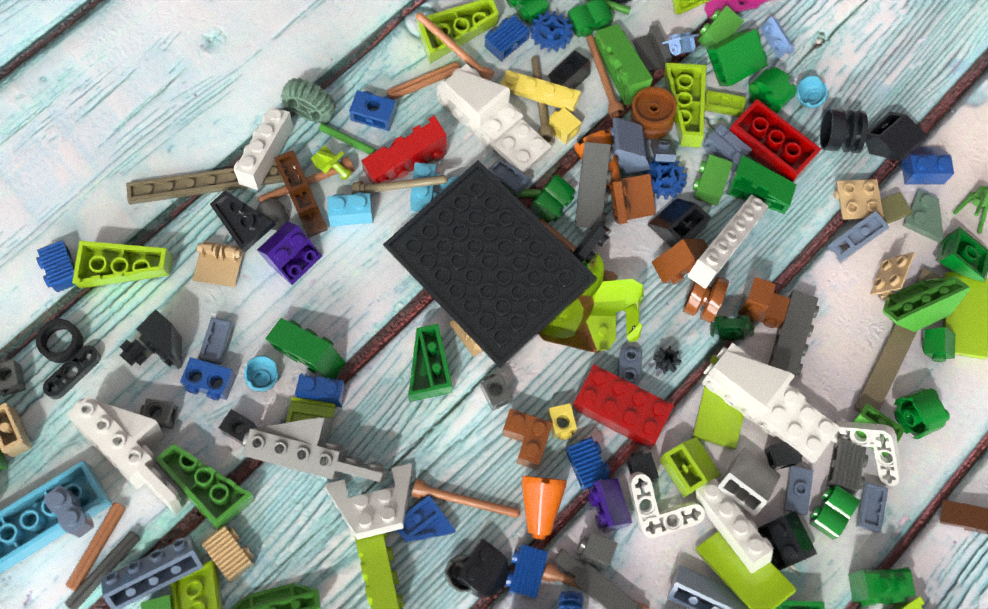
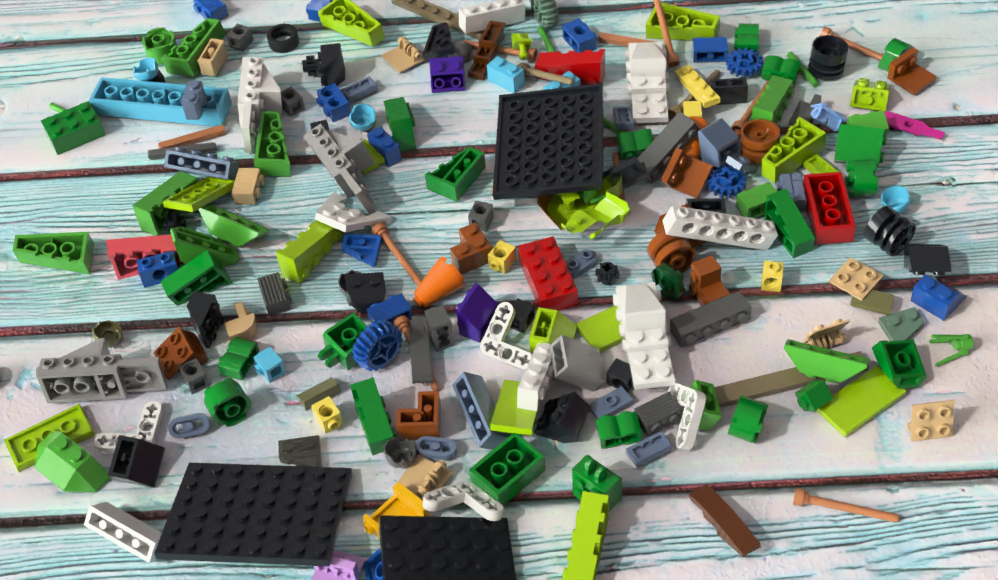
camera: 55 degrees right, 20 degrees down
(71, 382) = (283, 55): black beam -> none
(587, 462) = (495, 283): blue brick -> none
(775, 36) = (911, 158): light blue hinge -> none
(796, 250) = (772, 276): none -> light yellow brick
(859, 236) = (828, 298): sand blue plate -> none

